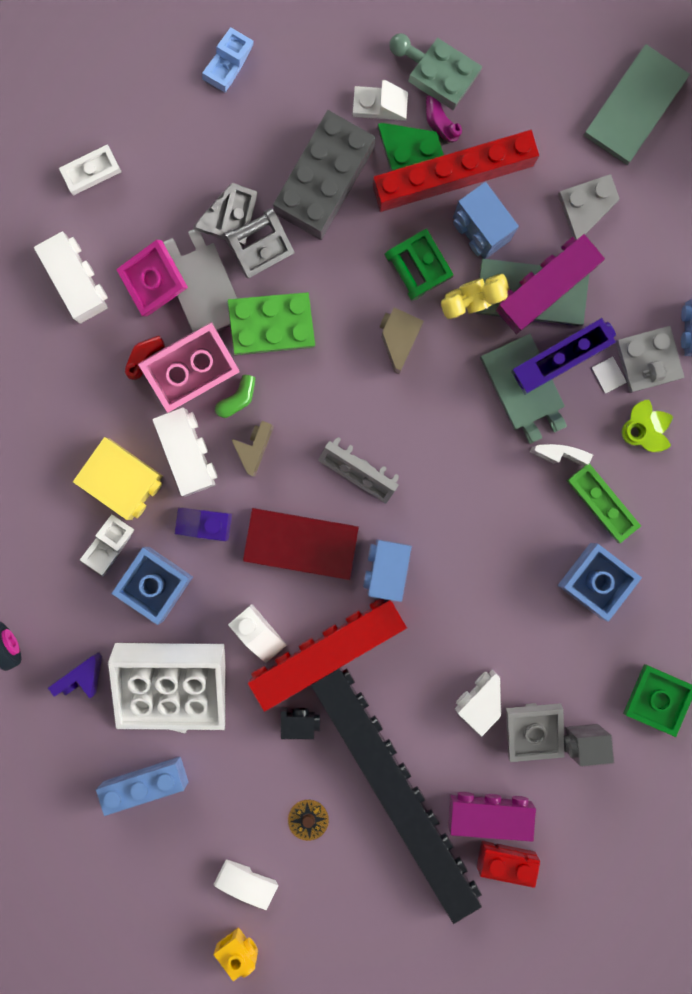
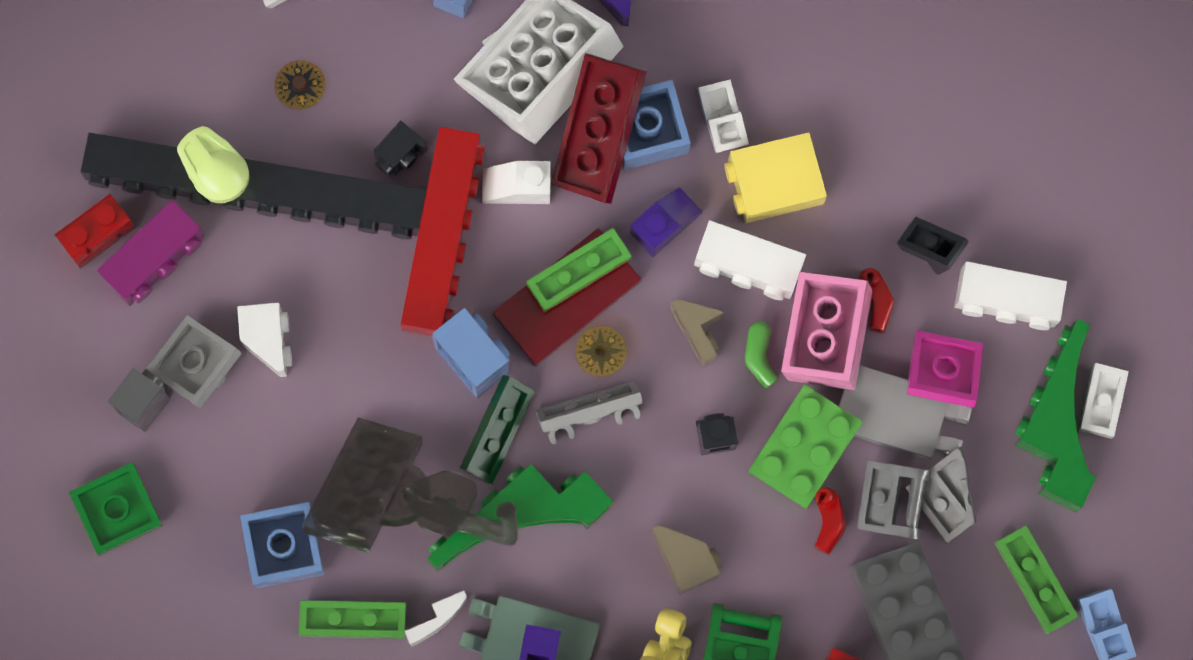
camera: 125 degrees right, 10 degrees down
(79, 348) = (932, 244): none -> black slope
(130, 188) = (1052, 428): none -> green arch
(180, 613) = (598, 128): none -> dark red tile
(234, 122) = (1036, 580): none -> bright green plate
(280, 549) = (578, 270): none -> bright green plate
(300, 271) = (832, 519): none -> red arm
(309, 382) = (716, 434): none -> black brick
(317, 494) = (601, 351): none -> clear yellow piece
(412, 830) = (213, 165): none -> yellowish green helmet
(418, 515) = (497, 429): none -> dark green plate
(450, 461) = (535, 504): none -> green arch
(514, 560) = (380, 486): none -> clear smoke plate

